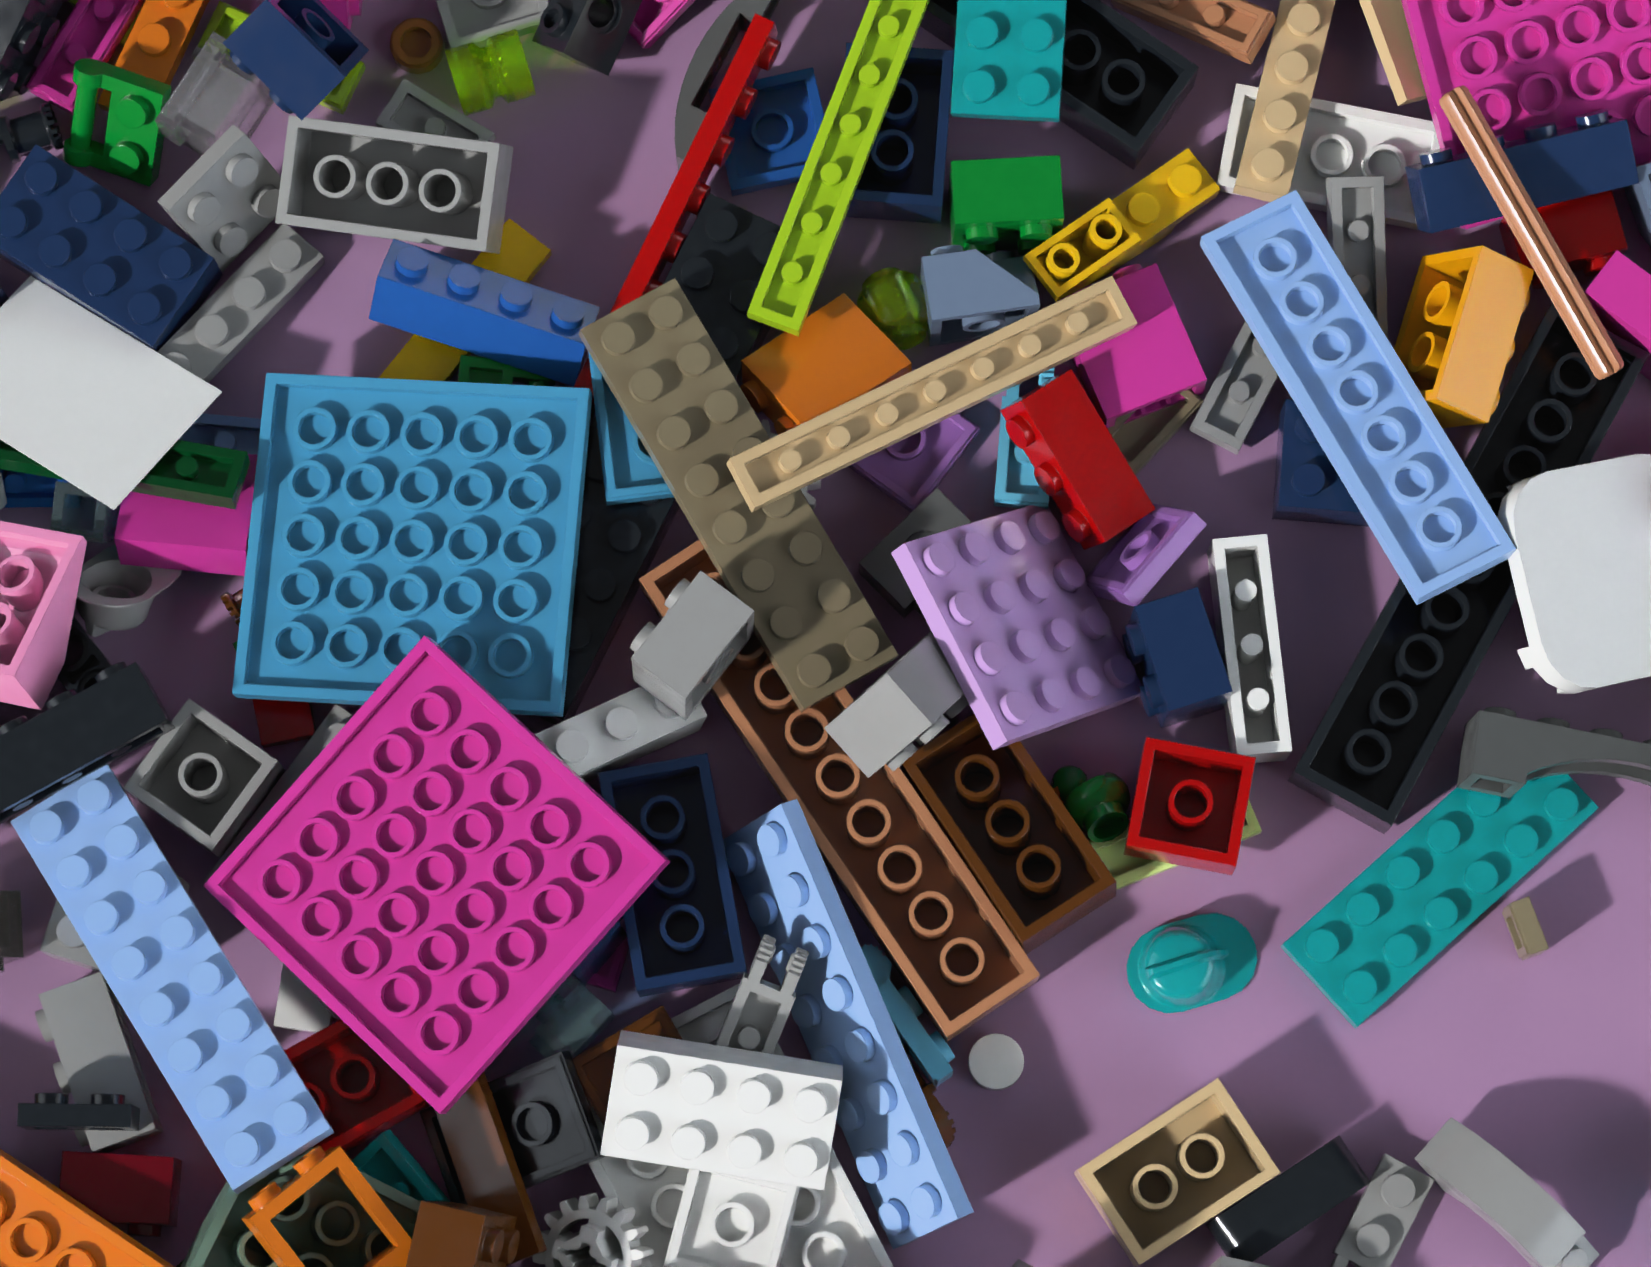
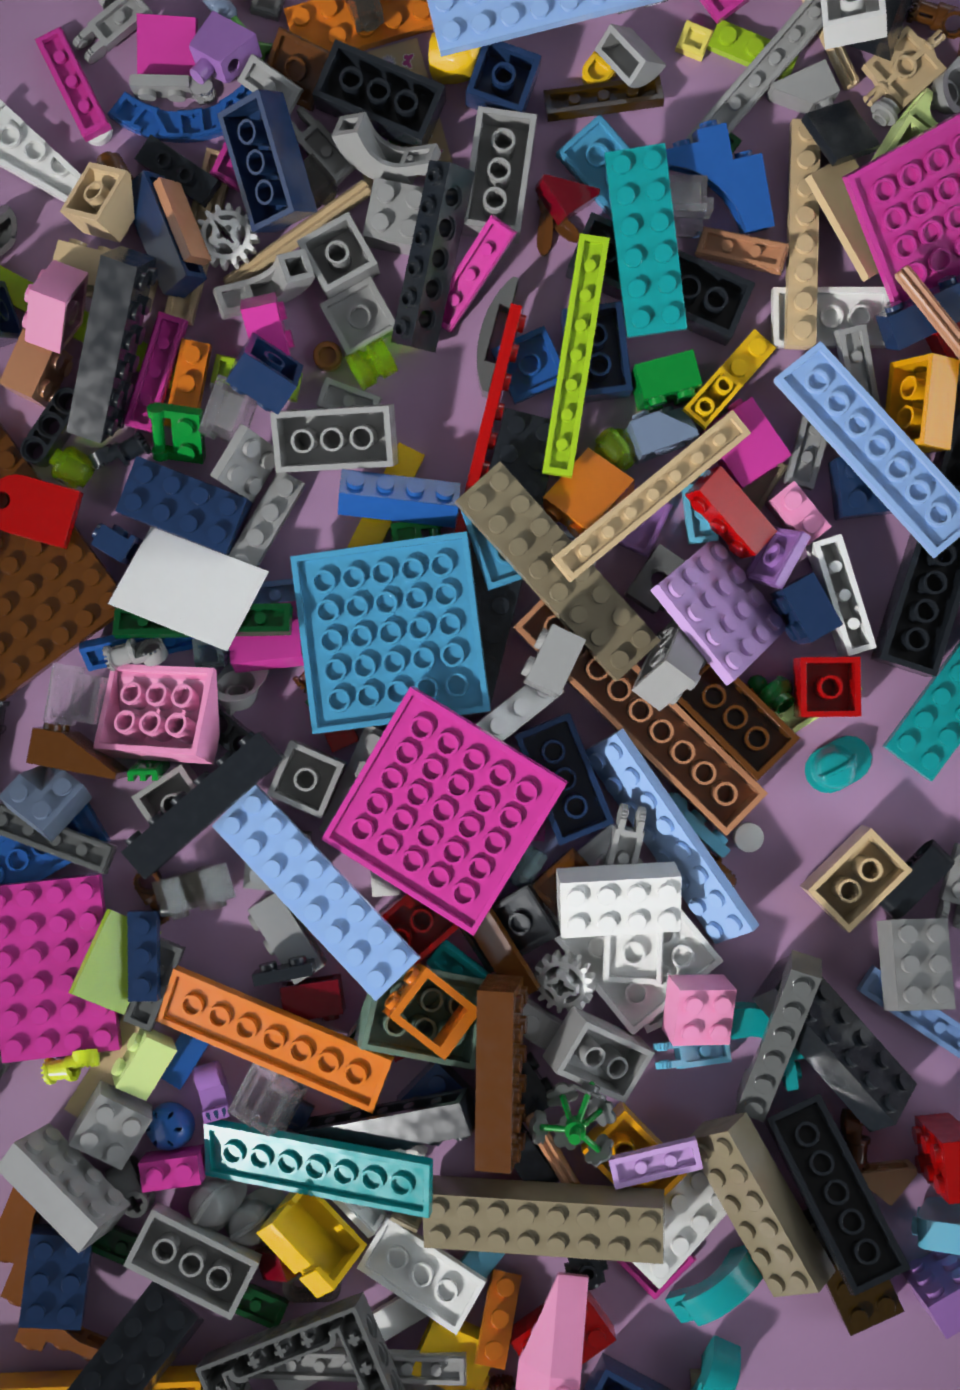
camera: 15 degrees left, 10 degrees up
(1200, 483) = (797, 512): none -> bright pink brick

